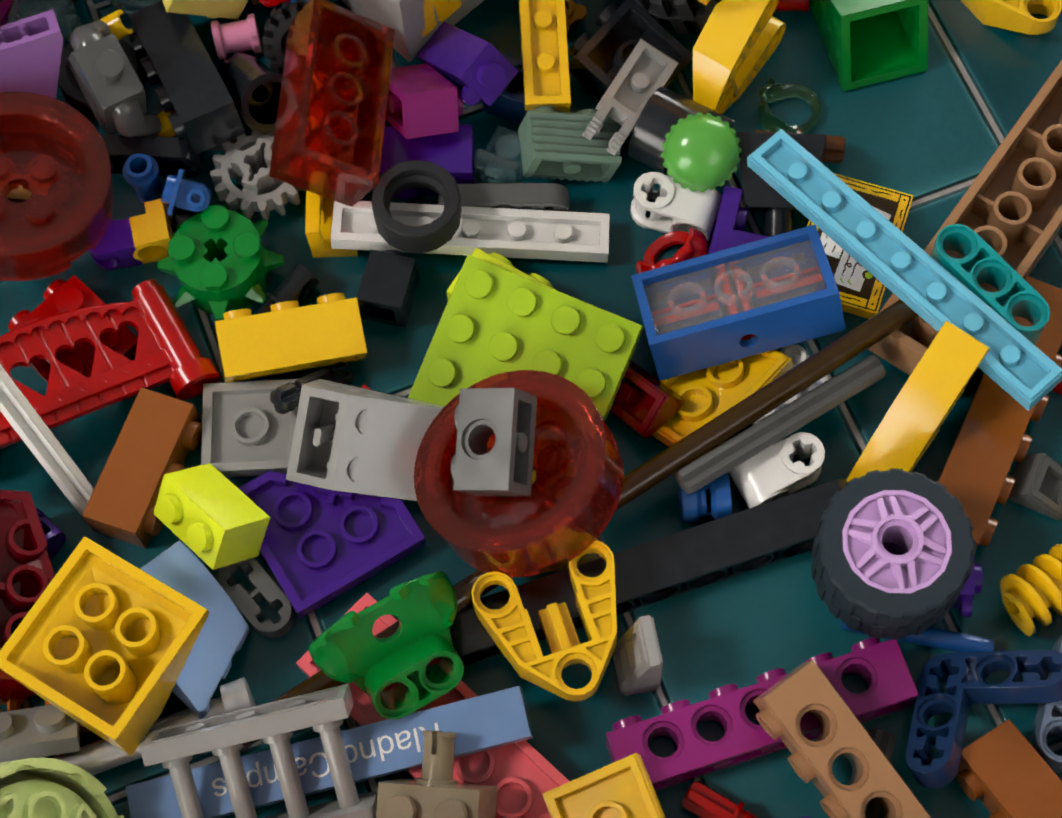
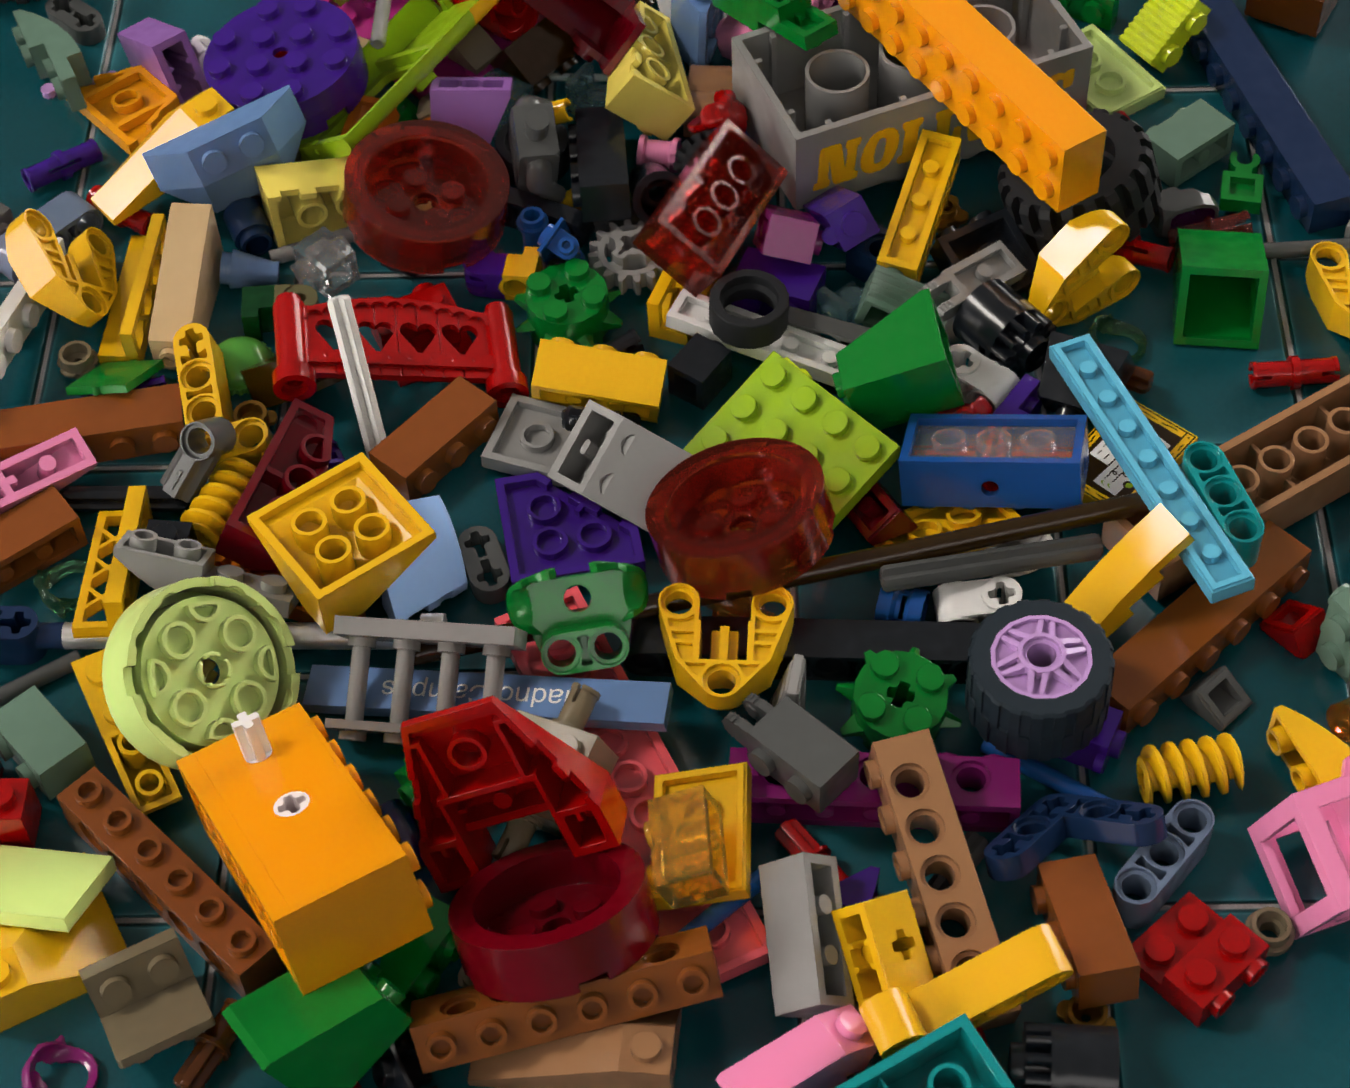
camera: 20 degrees right, 15 degrees down
(211, 515) = (473, 484): neon yellow brick -> none
(509, 465) = (727, 479): brick -> none
(606, 232) = (900, 366): none -> green slope
(677, 721) = (795, 750): none -> dark grey hinge
(701, 152) = (1012, 336): bright green hat -> none
(779, 611) = (901, 679): none -> green brick
(974, 88) = (1293, 372): none -> red pin

